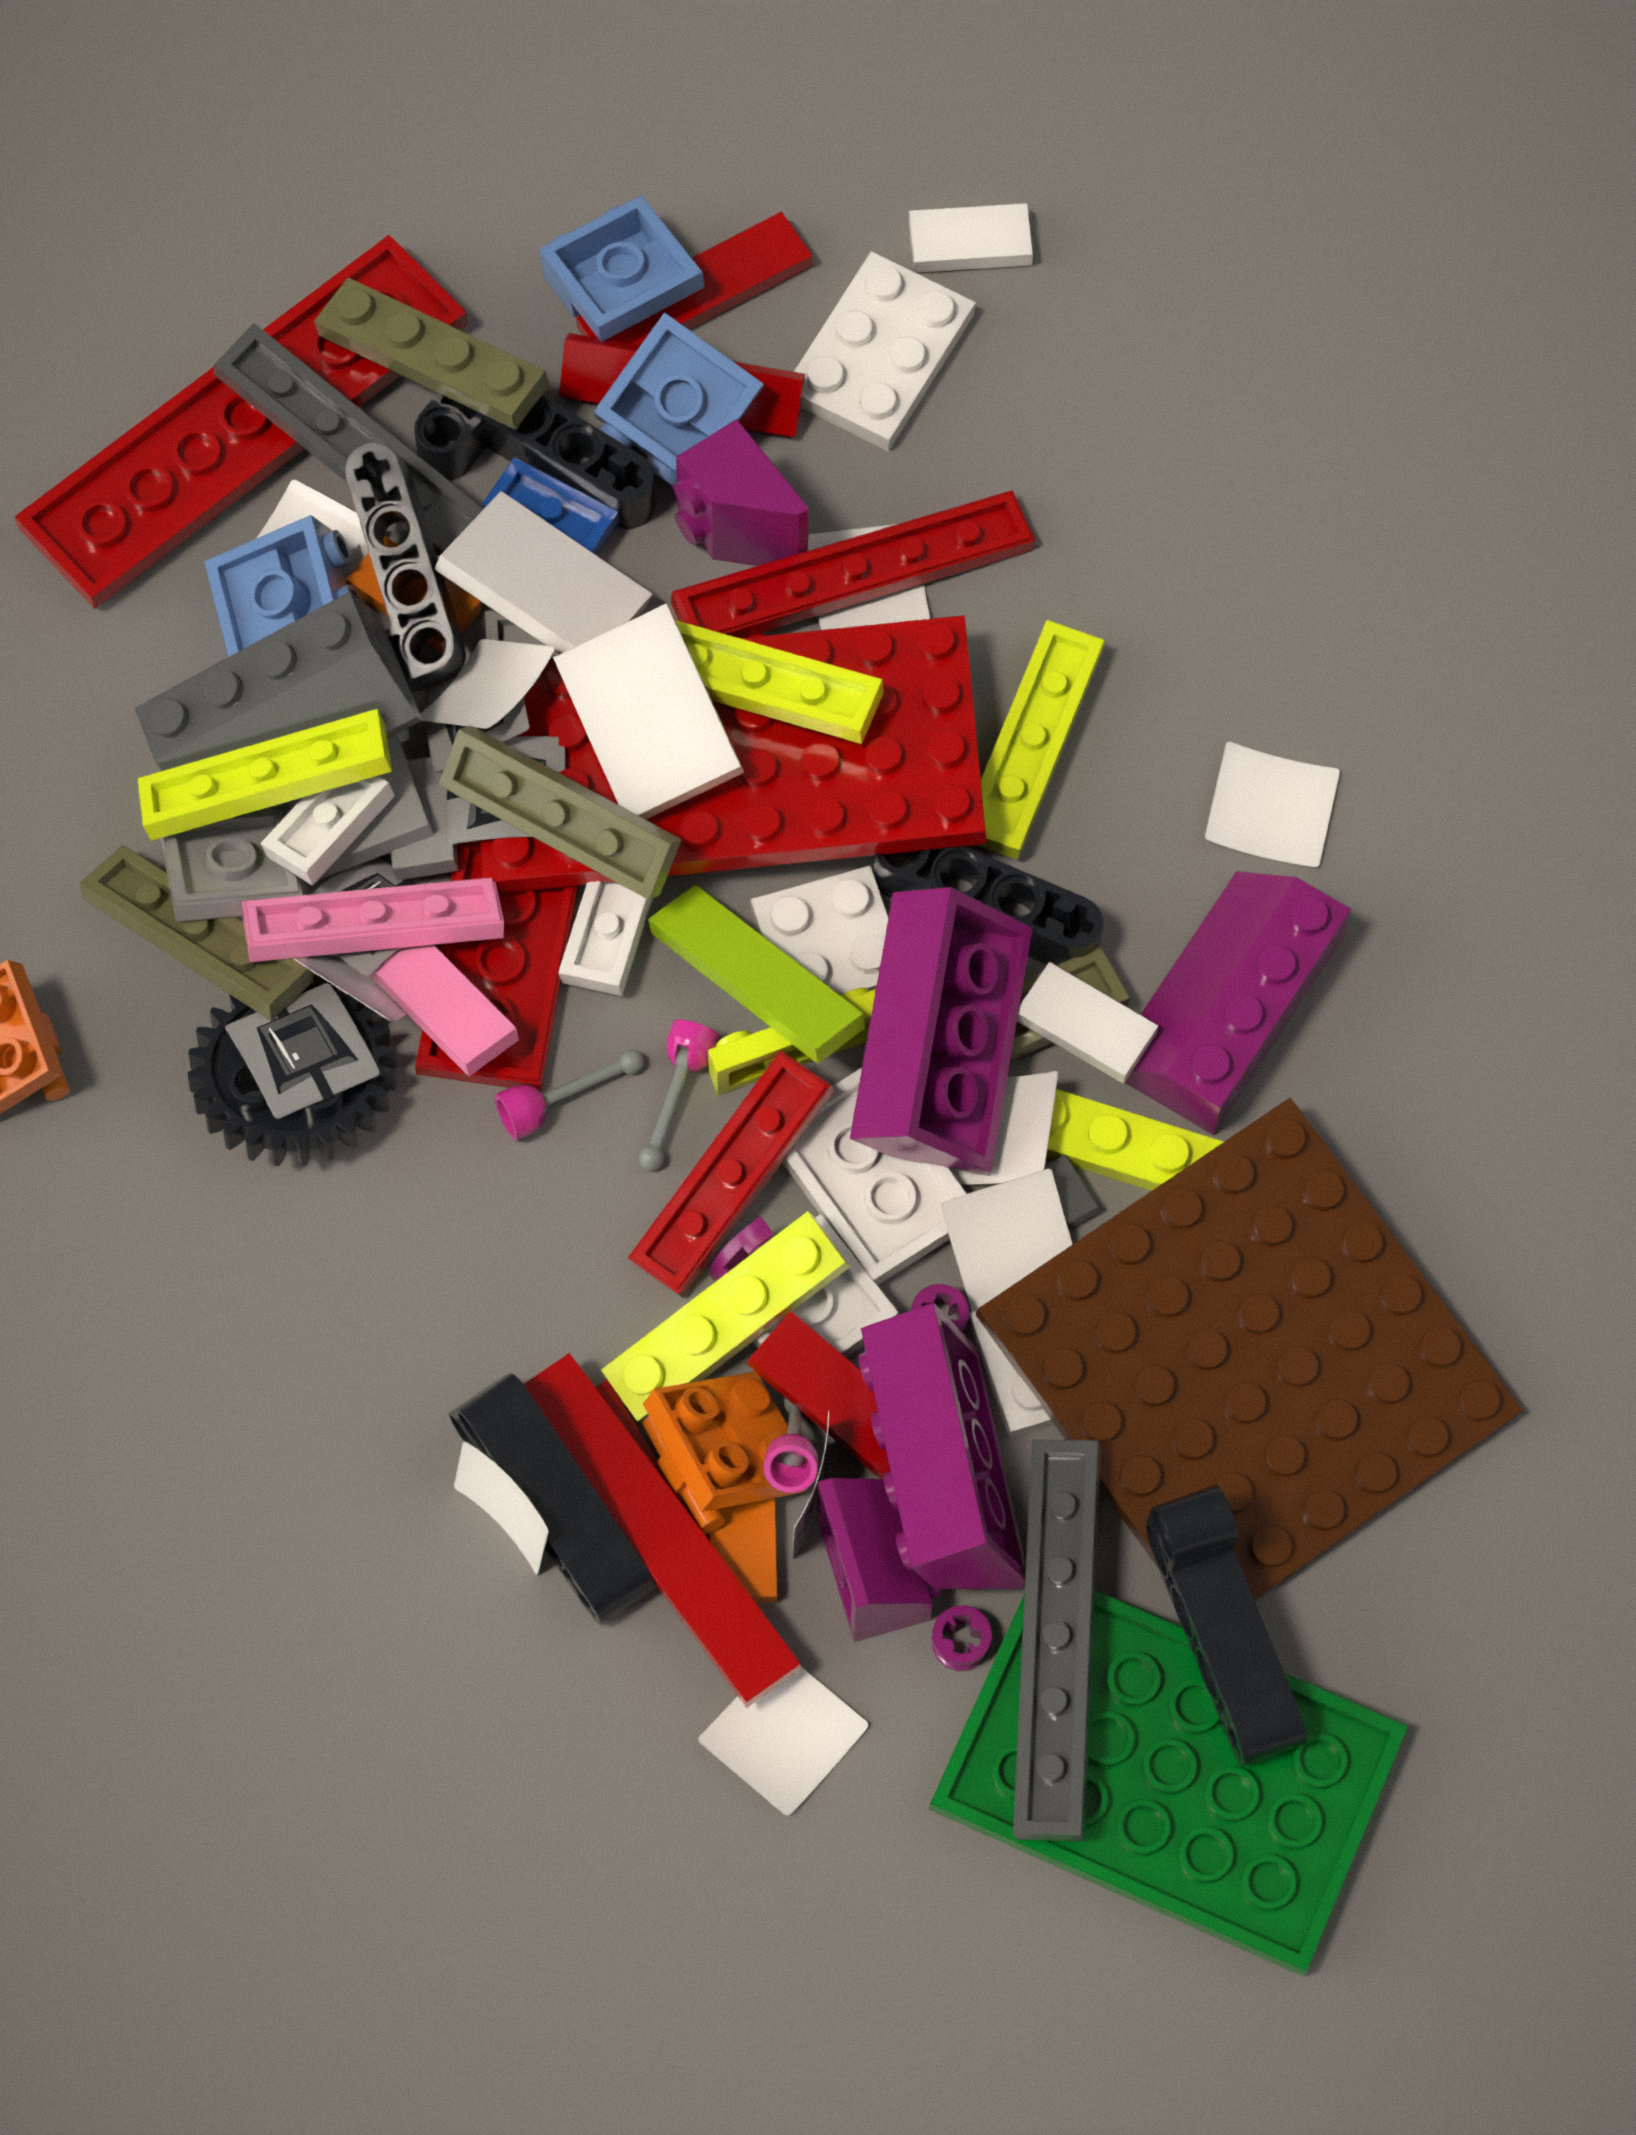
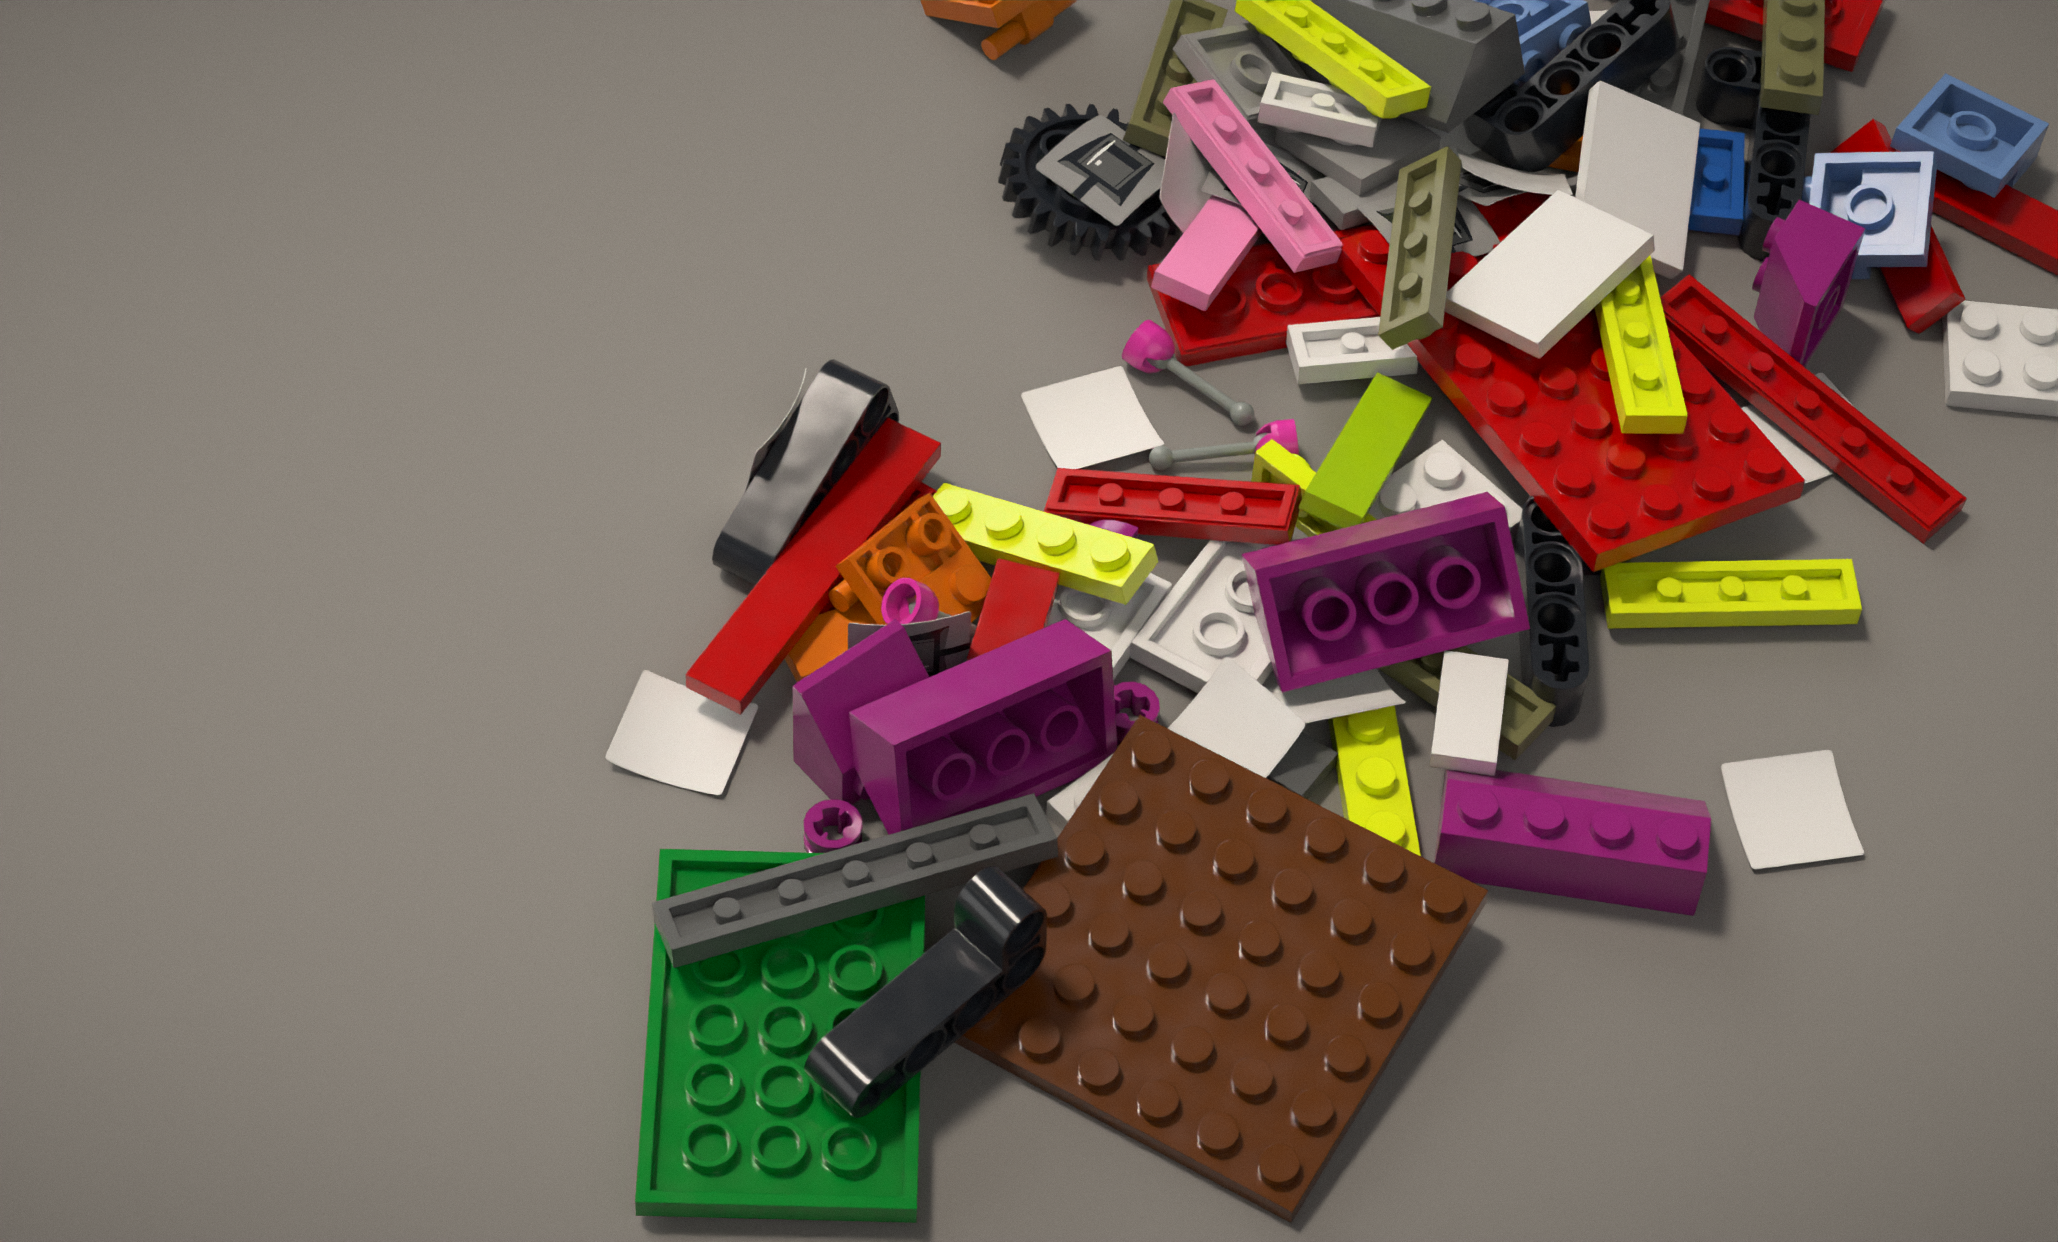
camera: 65 degrees right, 15 degrees down
(574, 1202) = (1090, 419): none -> white sticker

